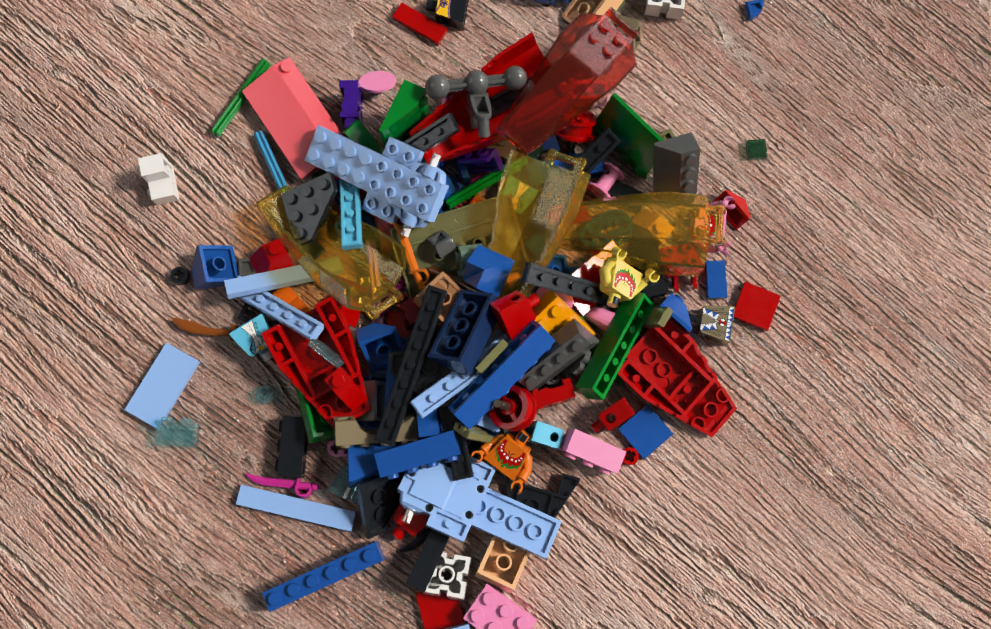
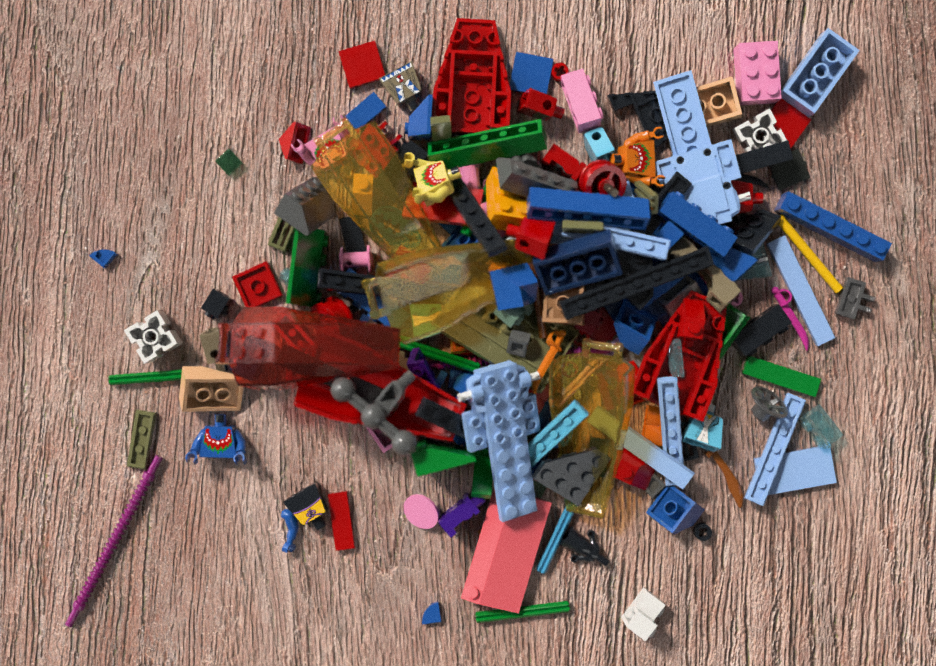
camera: 125 degrees left, 10 degrees up
(192, 382) = (774, 451): none -> light blue tile
(230, 400) = (765, 406): none -> flat silver wheel
(242, 436) = (781, 376): none -> green tile
(248, 176) = (587, 549): none -> black piece
(255, 543) = (851, 297): none -> flat silver hinge
(260, 394) = (738, 391): clear light blue plate -> none
(296, 33) = (432, 614): none -> blue tile
(323, 539) = (809, 255): none -> yellow piece
(395, 581) = (790, 172): none -> pearl dark grey piece
(645, 97) = (257, 285): none -> red tile
(654, 58) = (217, 304): none -> black brick

